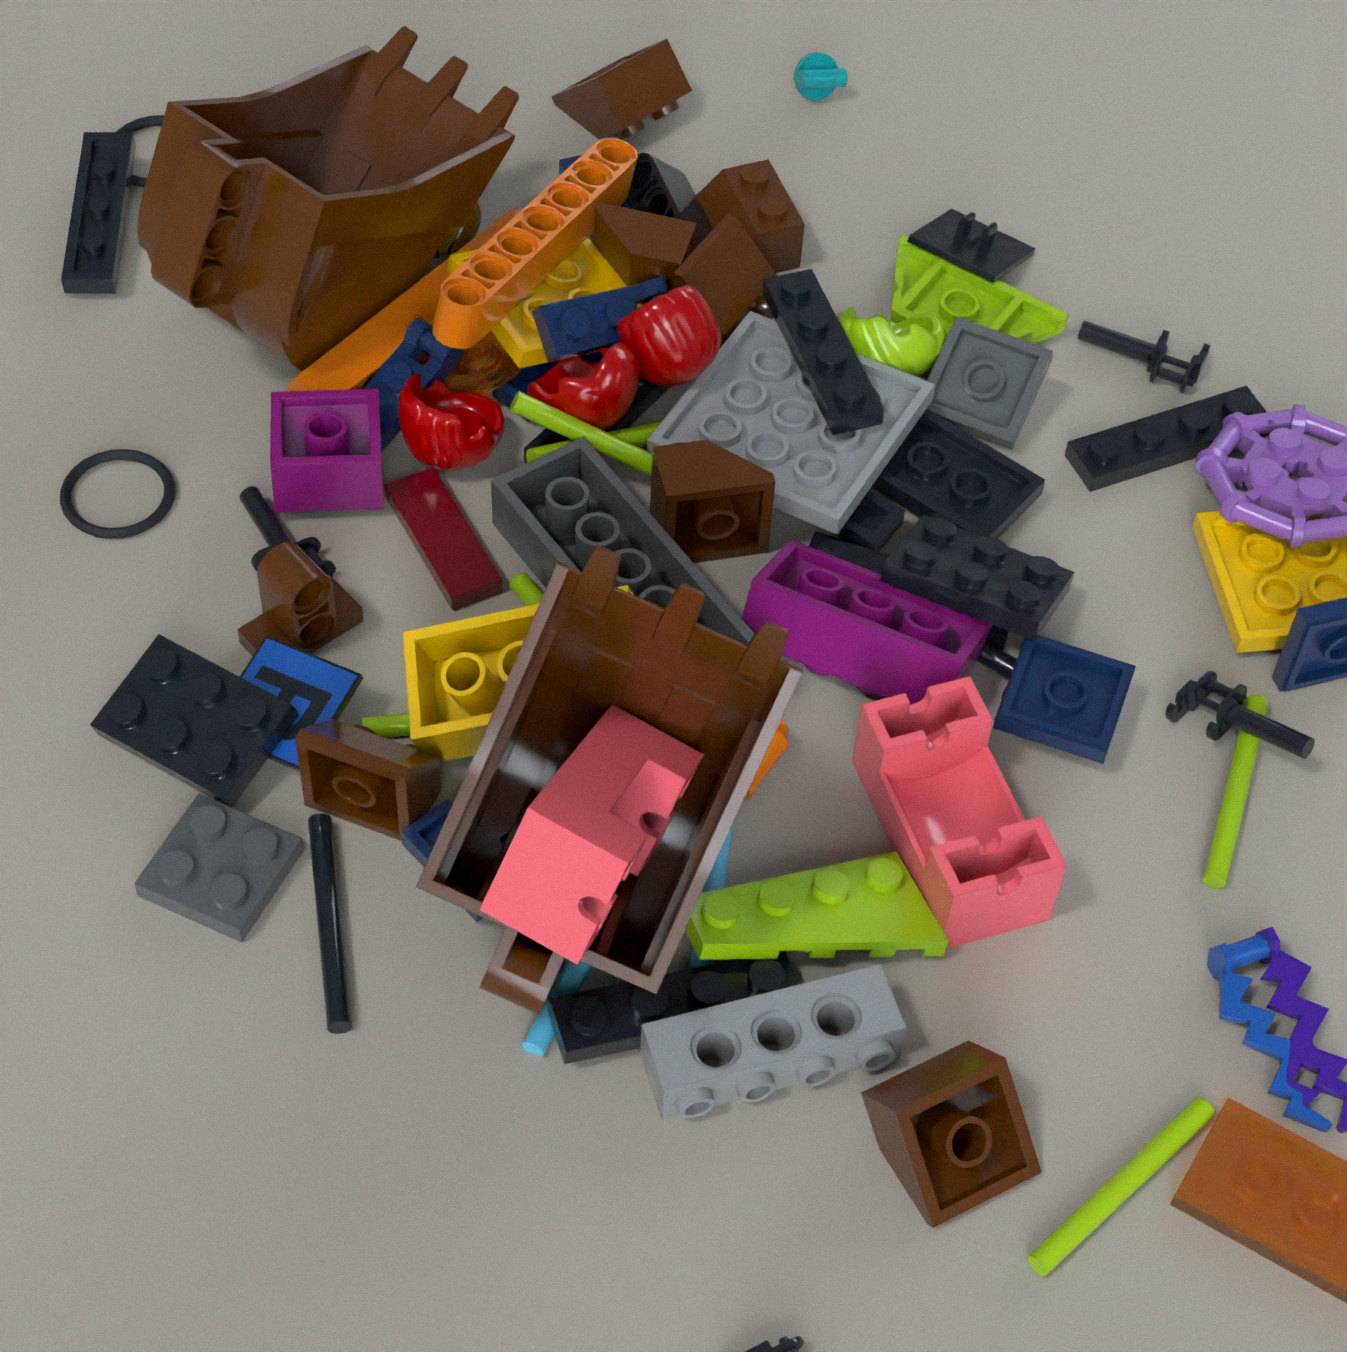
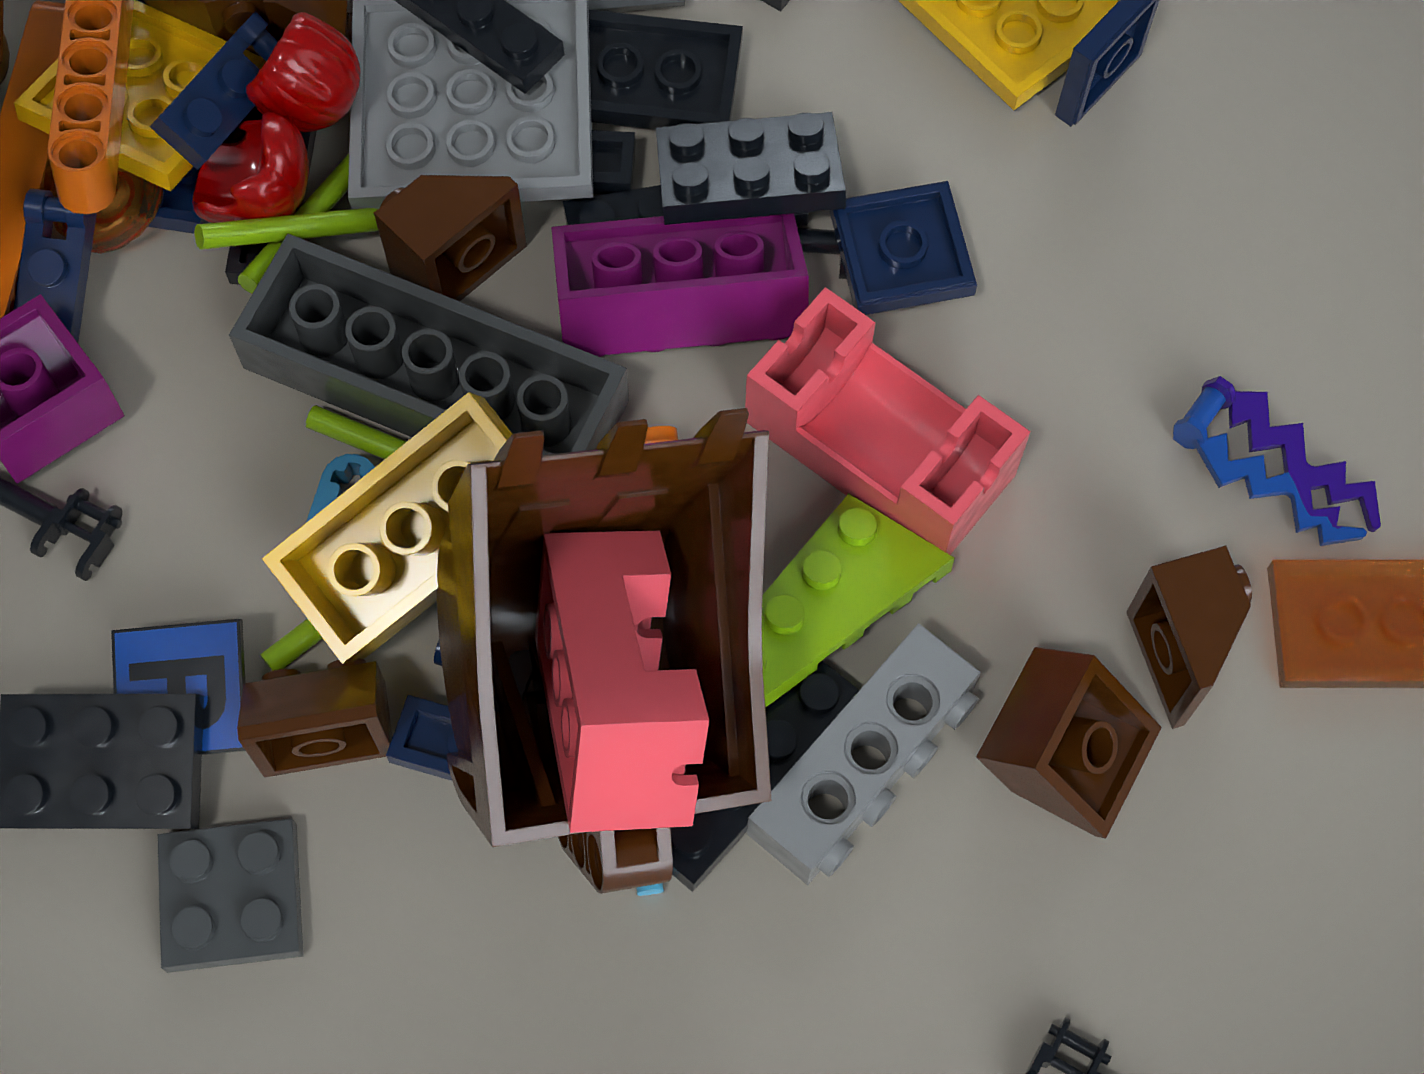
camera: 30 degrees left, 15 degrees up
(298, 603) = (119, 578): reddish brown tile -> none
(329, 924) = (376, 886): black bar -> none
(443, 538) = (205, 413): dark red tile -> none
(447, 426) = (133, 289): red piece -> none
(1113, 1093) = (1187, 624): none -> reddish brown slope
(1120, 1186) = (1233, 708): lime bar -> none
(1232, 714) = (1060, 177): black piece -> none
(1233, 802) = (1097, 252): lime bar -> none

